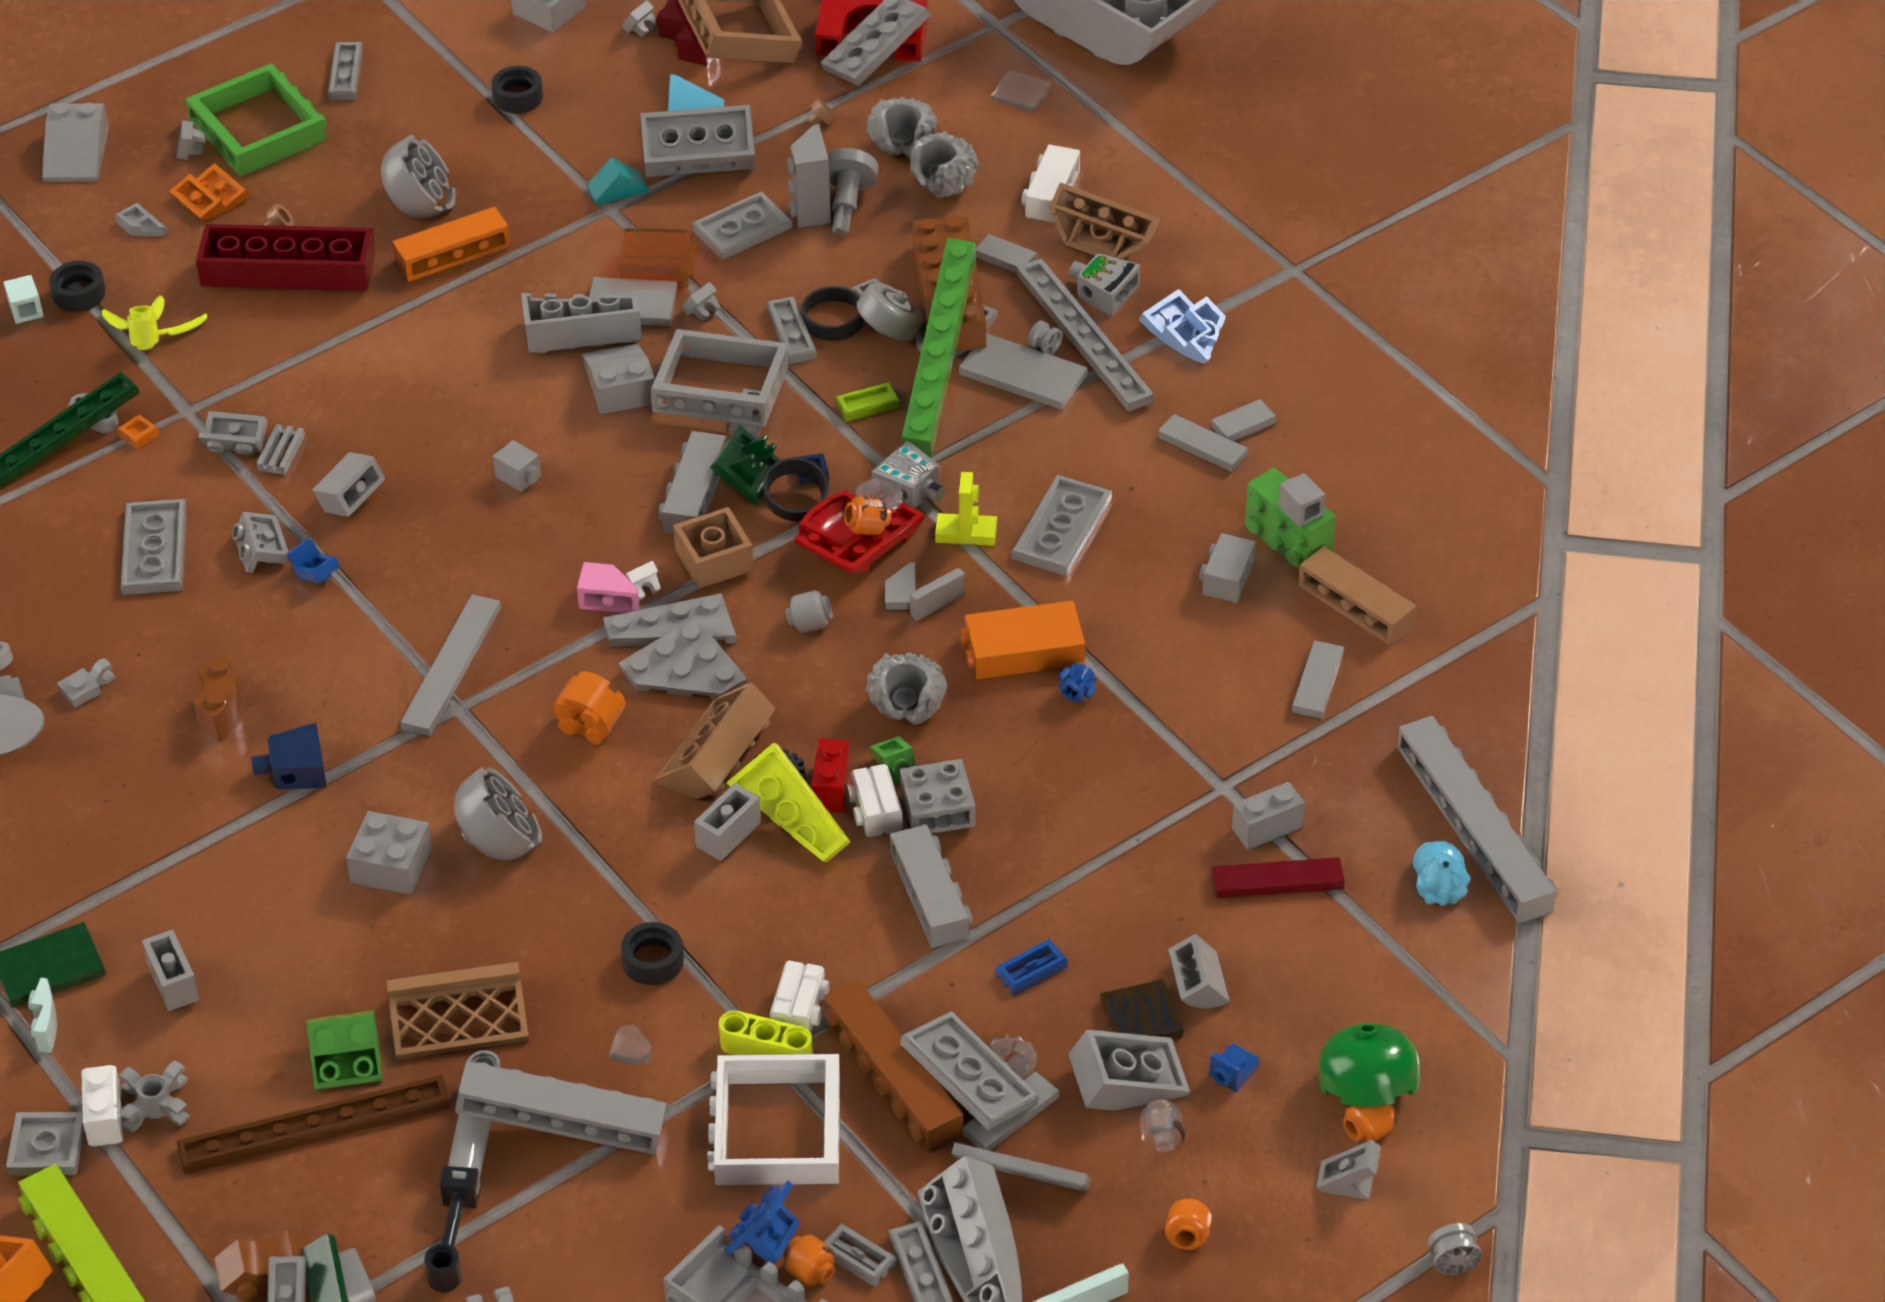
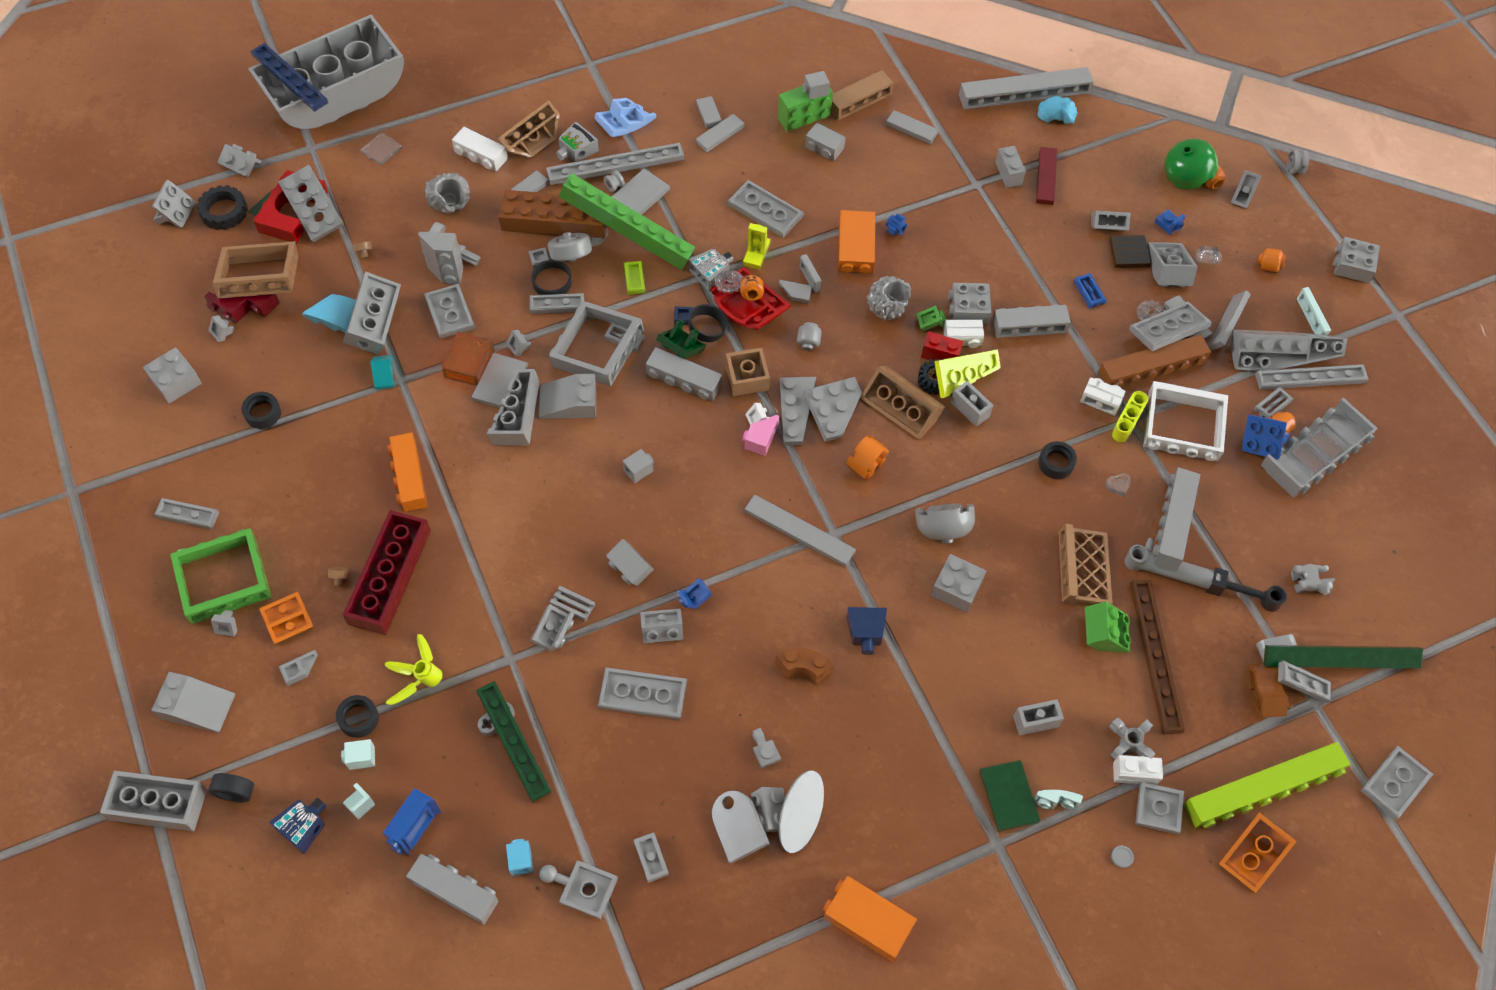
camera: 80 degrees left, 15 degrees up
(138, 432) = (524, 692): orange tile -> none
(415, 178) = (339, 482): light grey cylinder -> none
(899, 124) = (403, 205): light grey hair -> none

